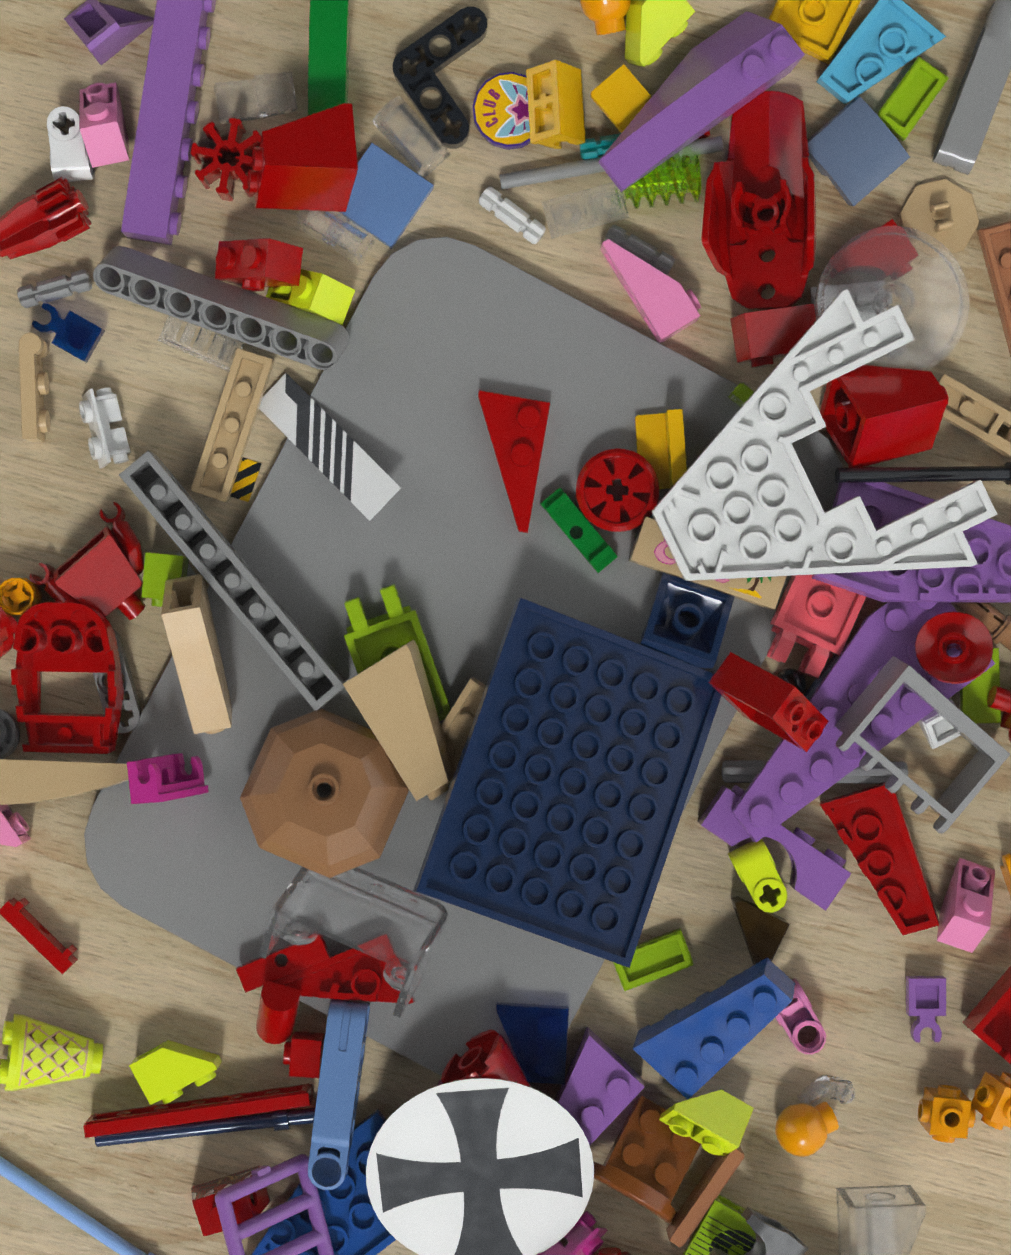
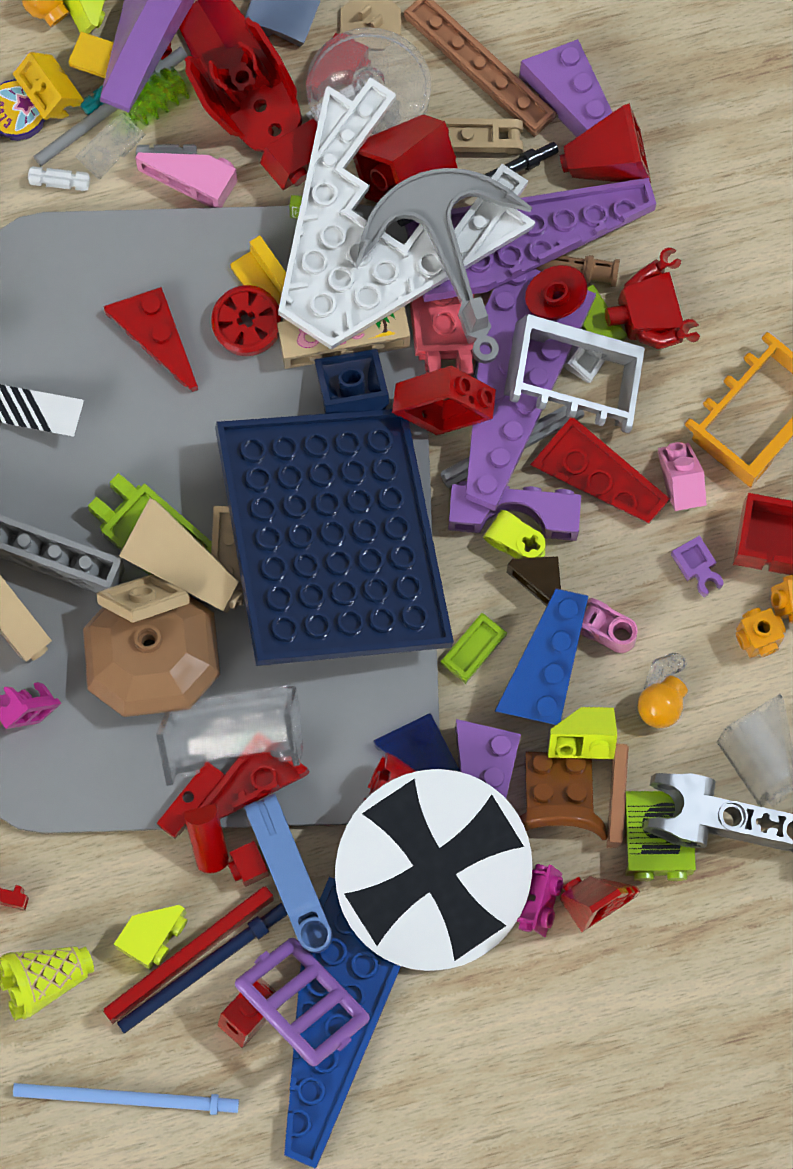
camera: 35 degrees left, 15 degrees down
(340, 745) = (142, 598): none -> tan plate
(567, 516) = (220, 360): green piece -> none
(879, 485) = (429, 201): none -> light grey piece

